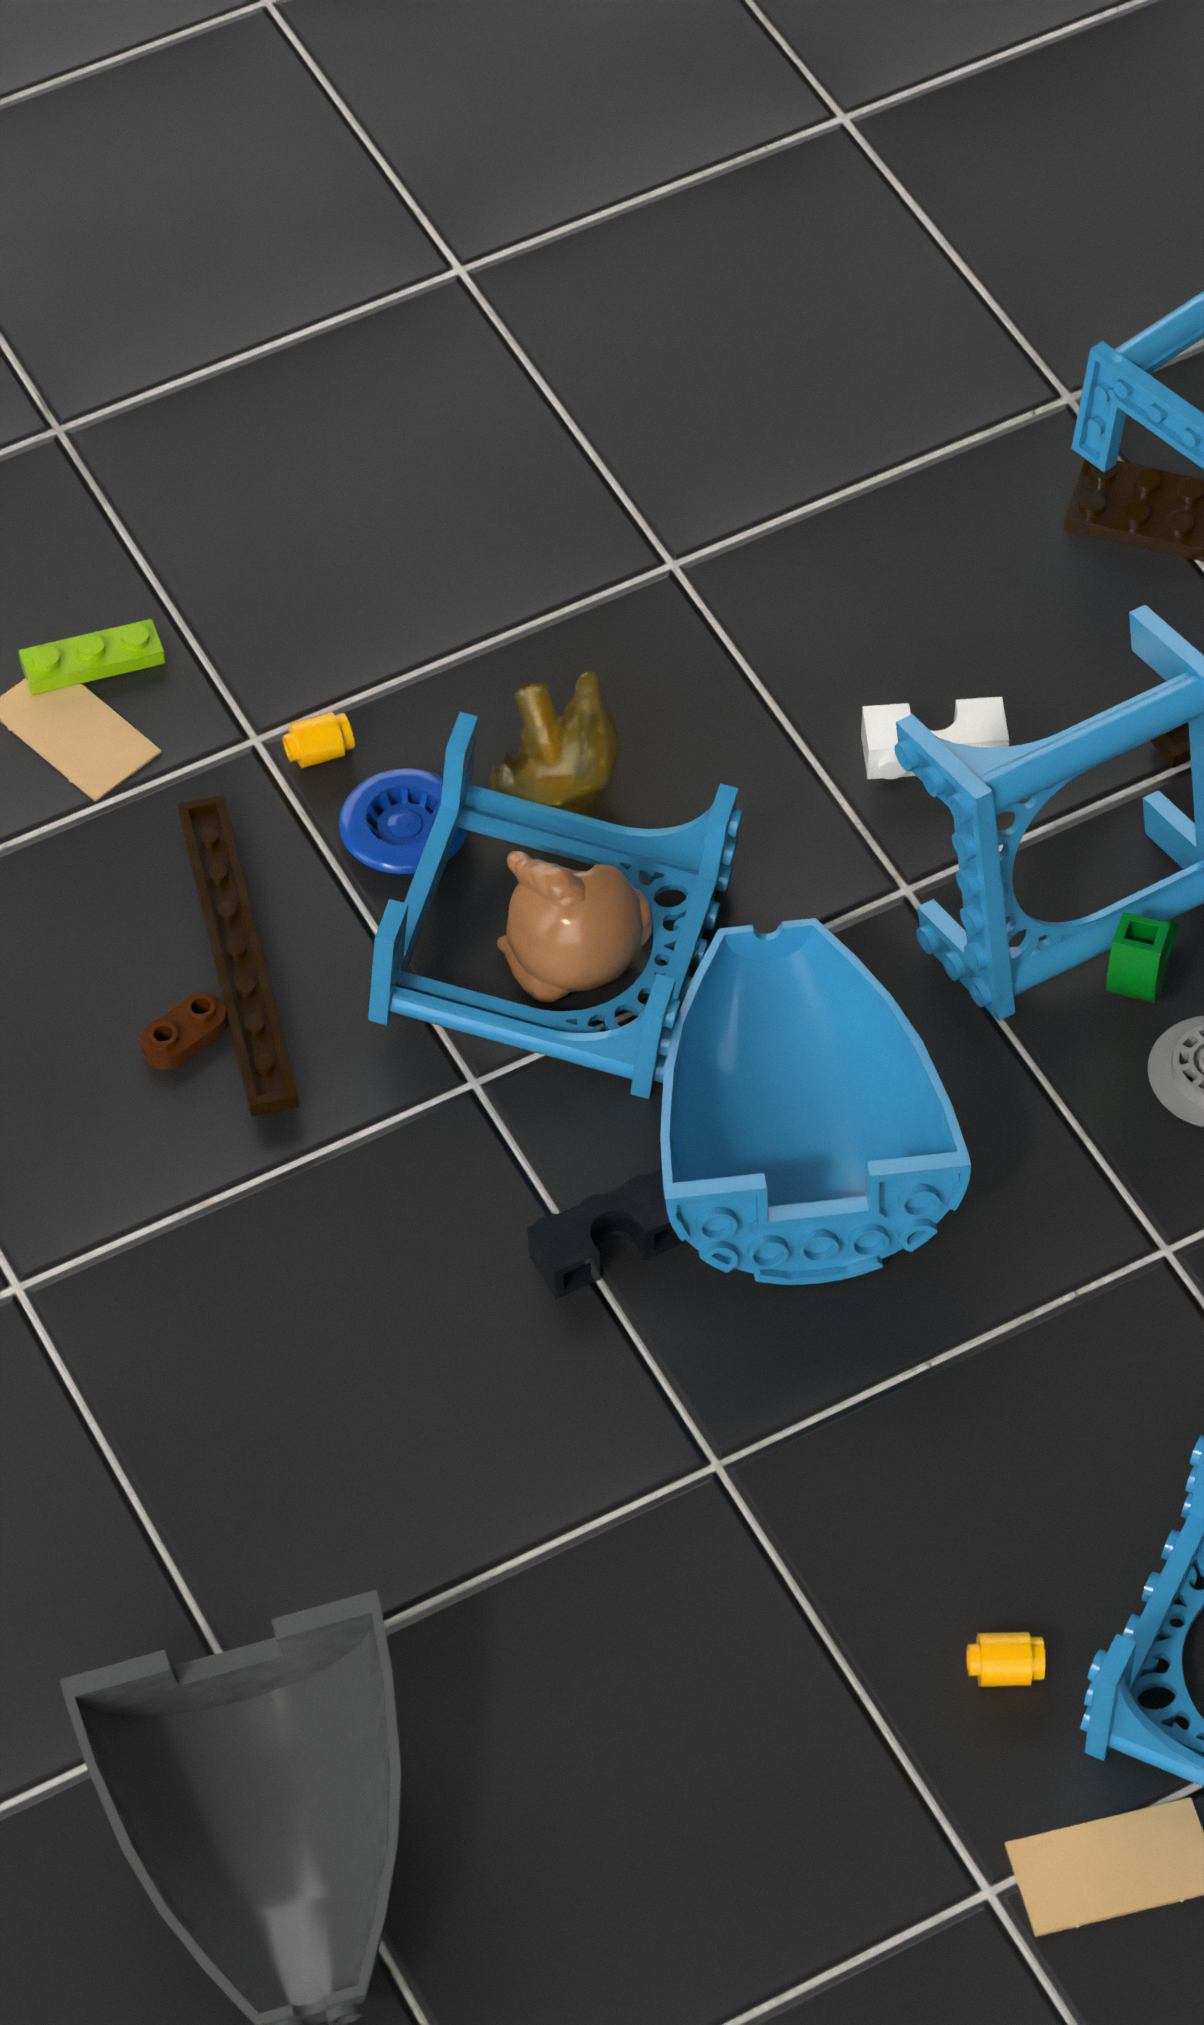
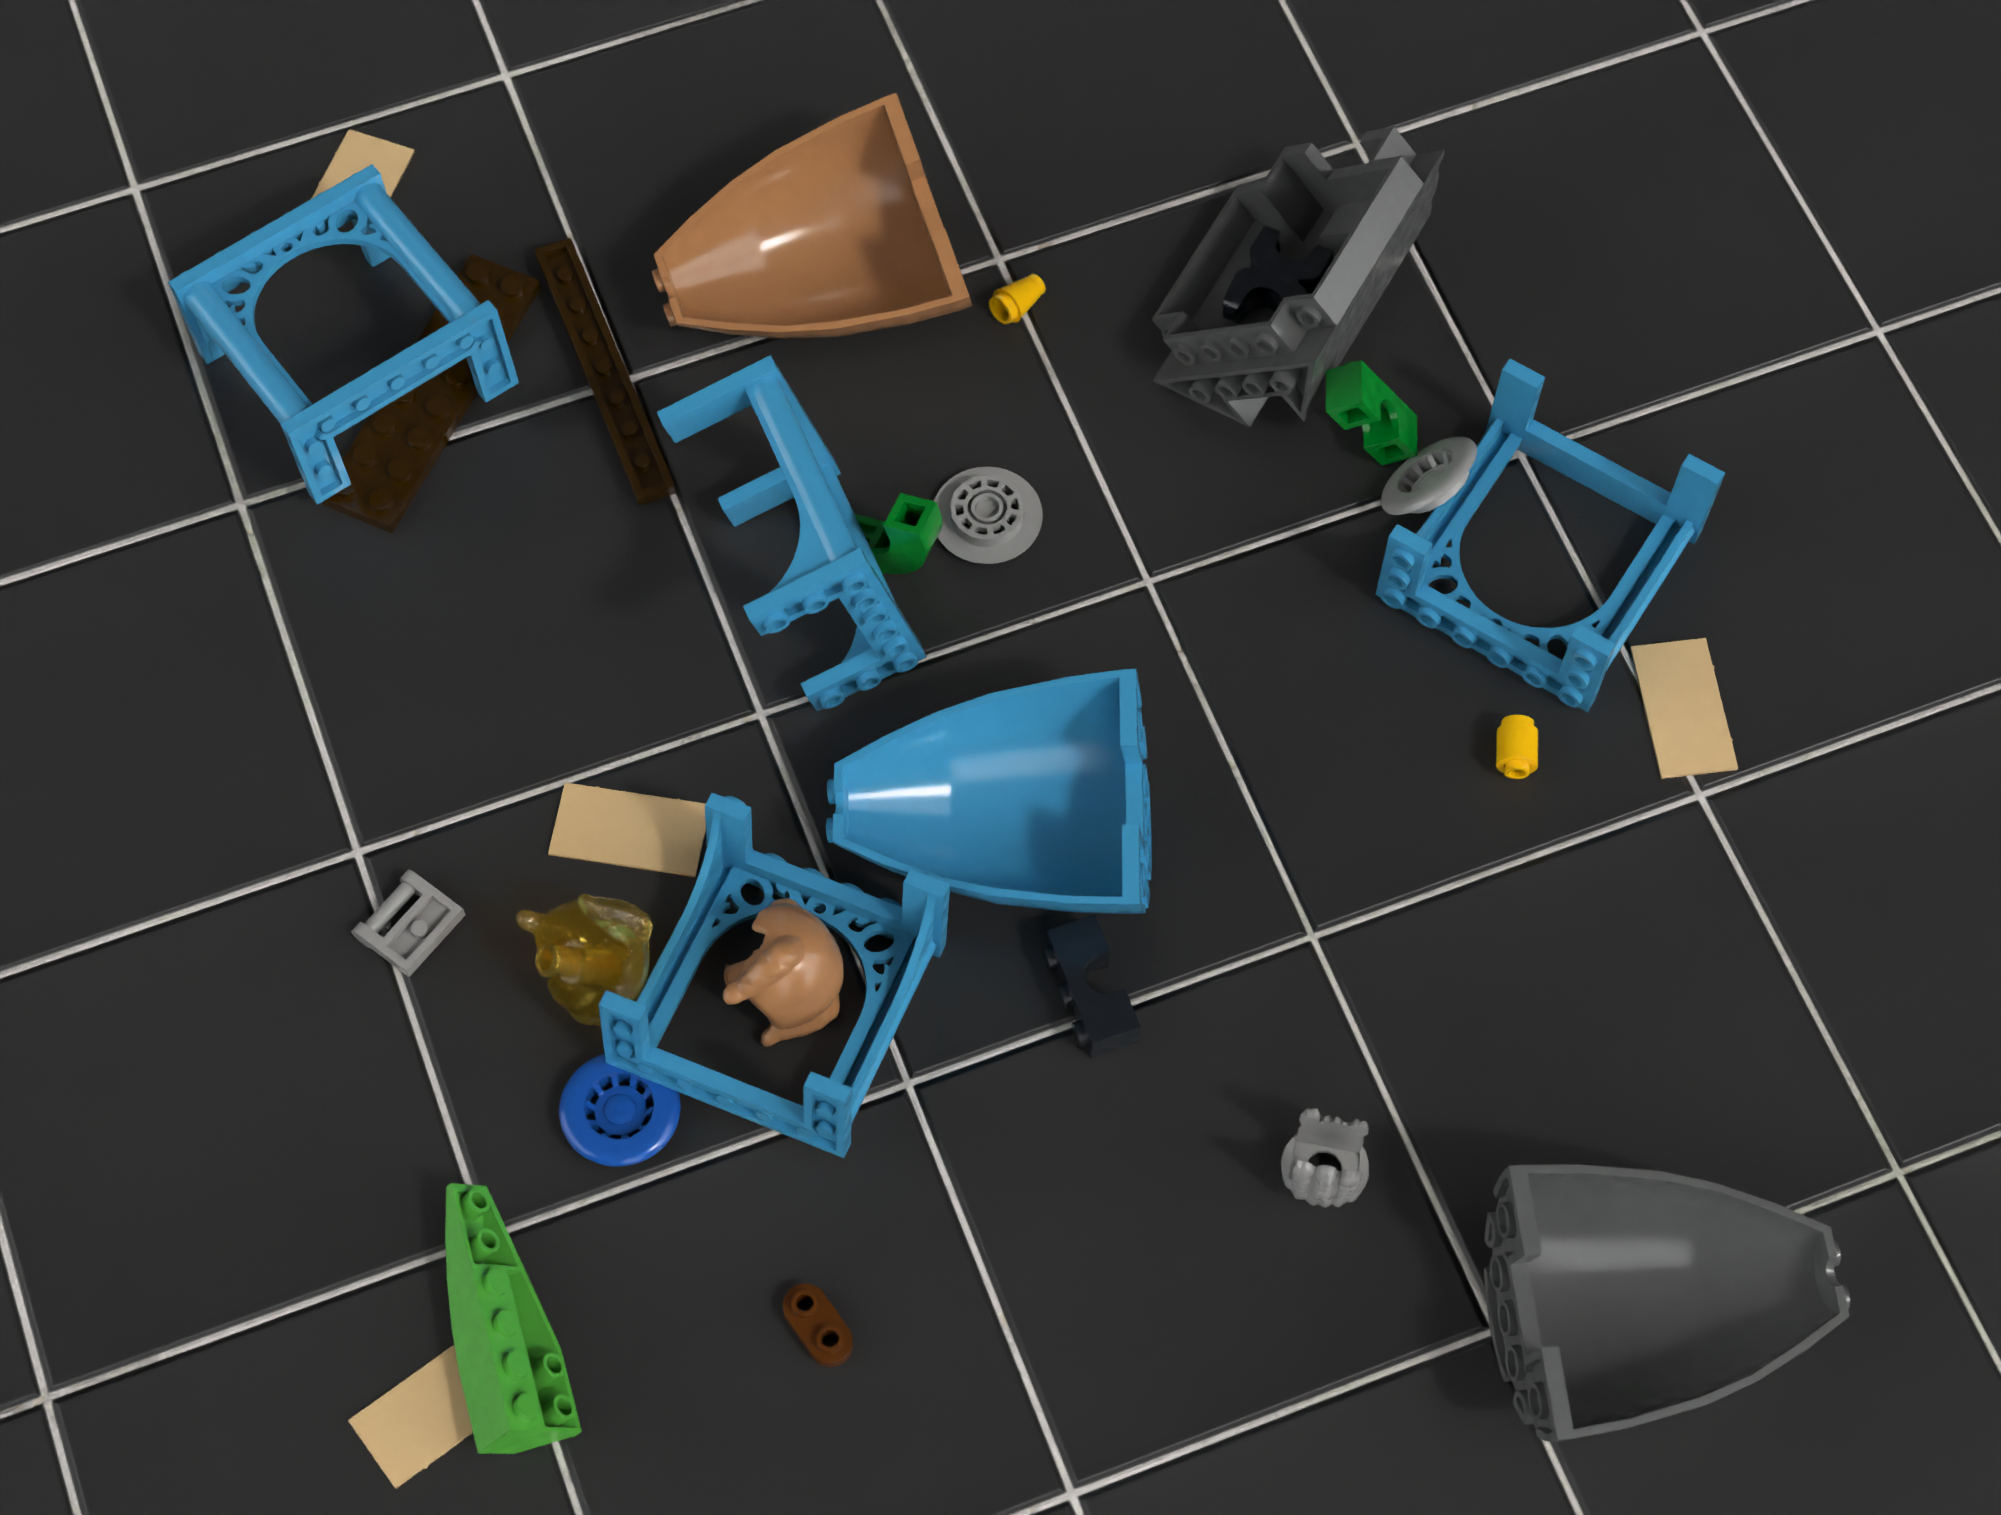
camera: 85 degrees left, 10 degrees up
(91, 656) = (359, 1380): lime plate -> none
(148, 757) = (500, 1333): none -> bright green wedge
(238, 956) = (741, 1268): dark brown plate -> none
(318, 739) = (511, 1174): yellow brick -> none
(385, 1460) = (1323, 1183): none -> light grey piece
(587, 622) = (418, 929): none -> light grey plate
(754, 762) = (629, 829): none -> tan window
(976, 723) = (615, 694): white arch -> none

